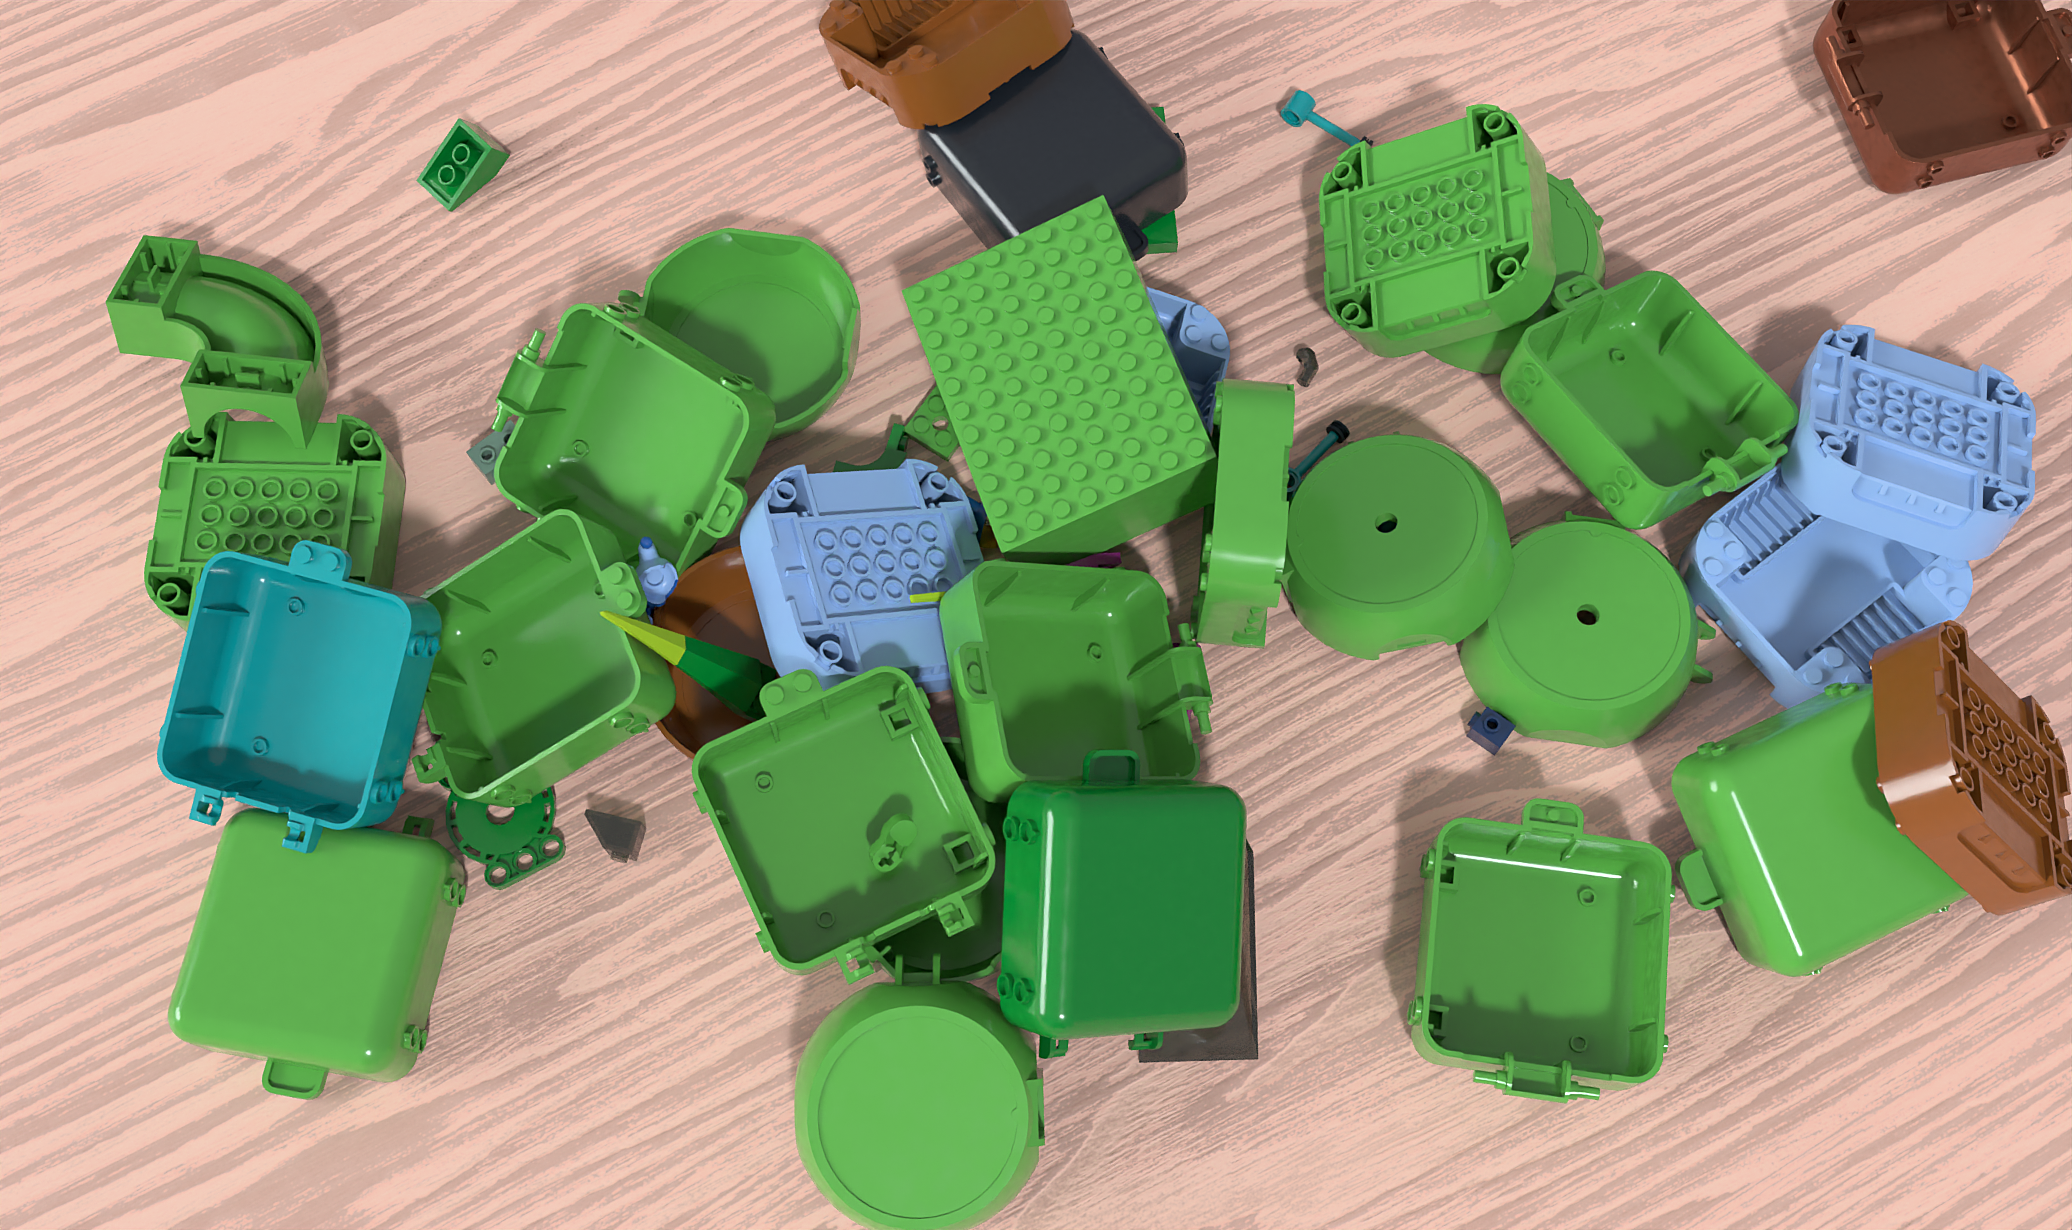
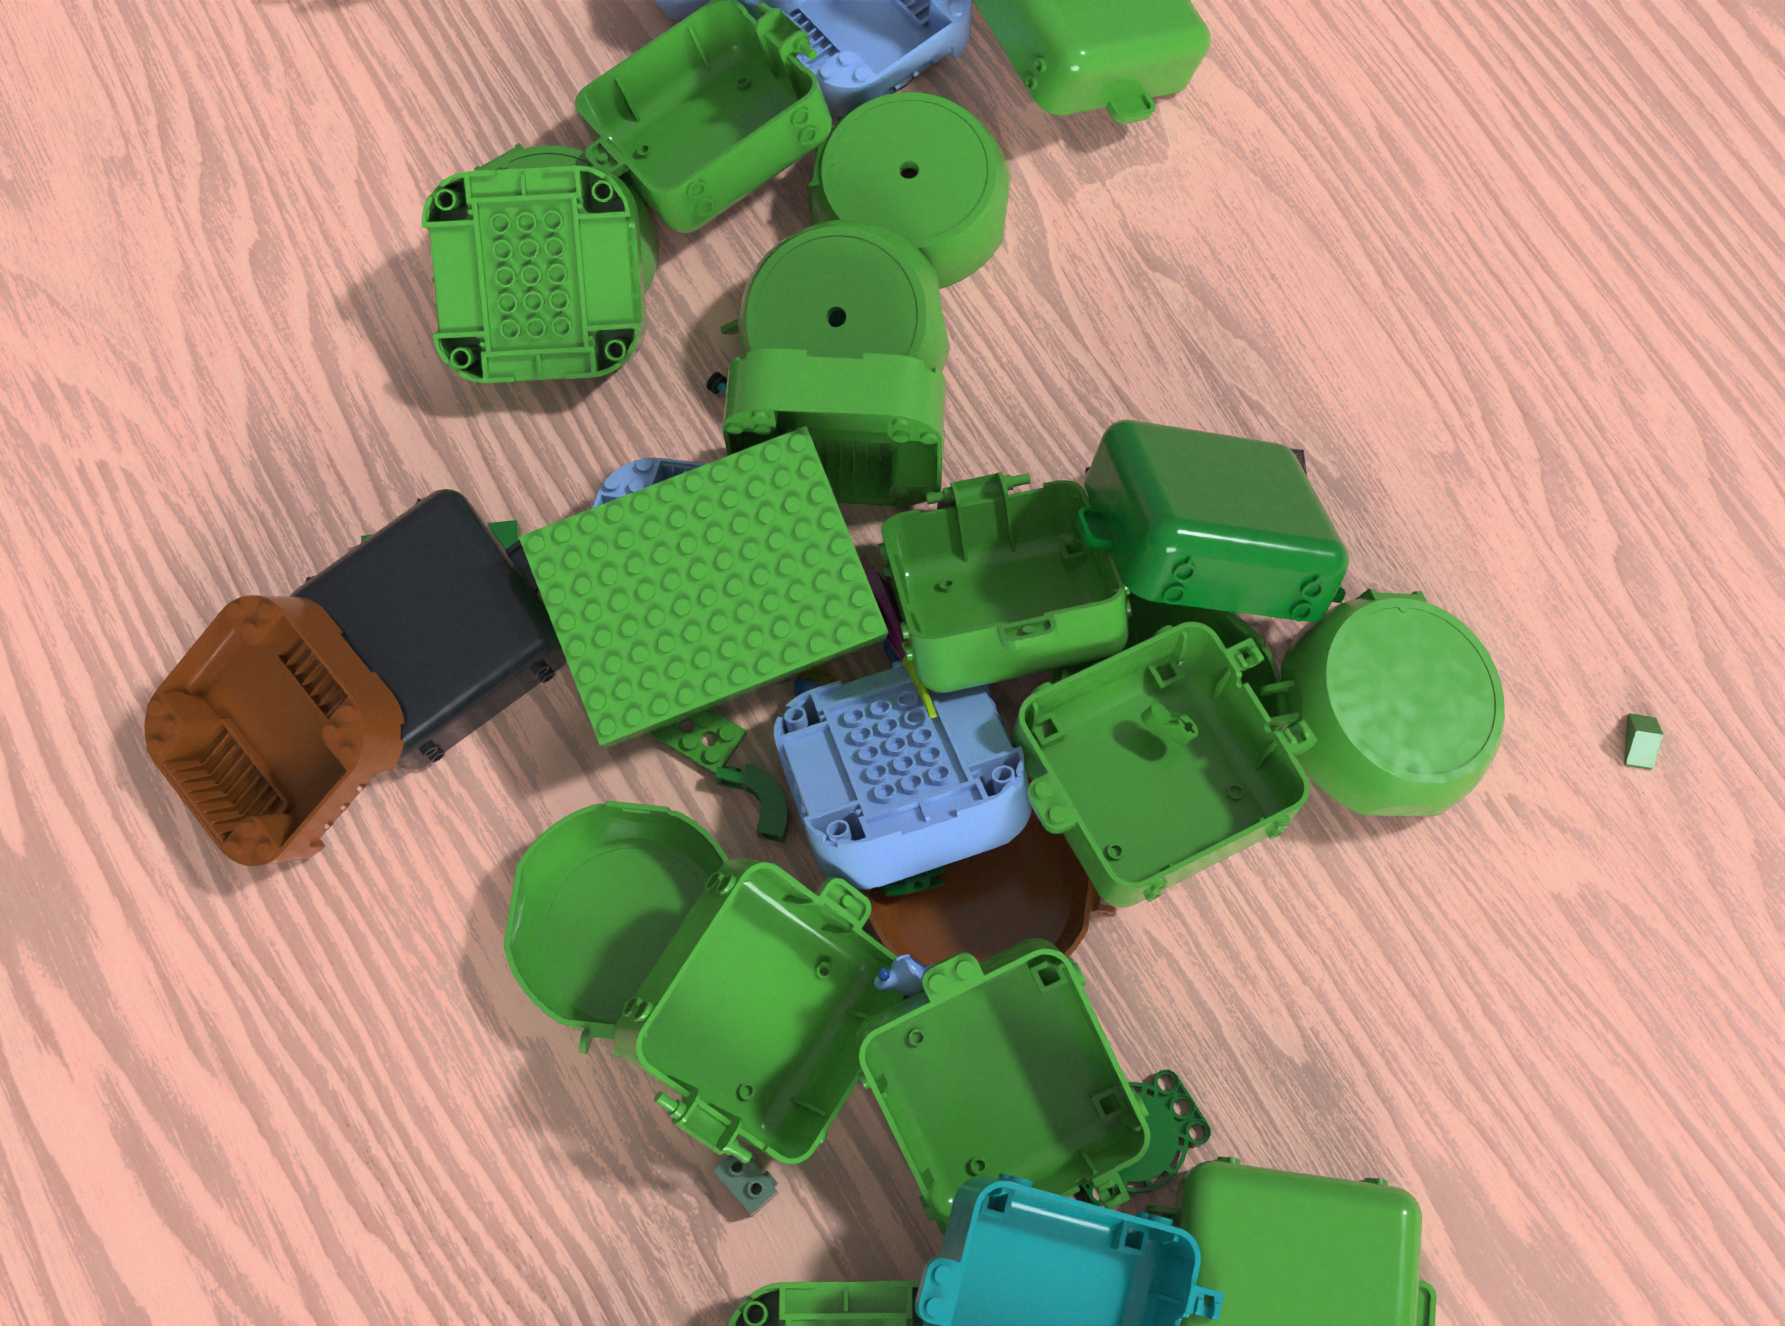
camera: 90 degrees left, 0 degrees up
(462, 164) = (394, 1269): green slope -> none
(617, 835) = (1151, 1016): clear smoke slope -> none
(724, 673) = (996, 912): green plate -> none
(1300, 109) = (369, 412): teal piece -> none
(1310, 364) = (647, 406): clear smoke arm -> none
(1489, 730) = (1001, 264): dark blue brick -> none
(1543, 955) = (1209, 221): bright green container -> none

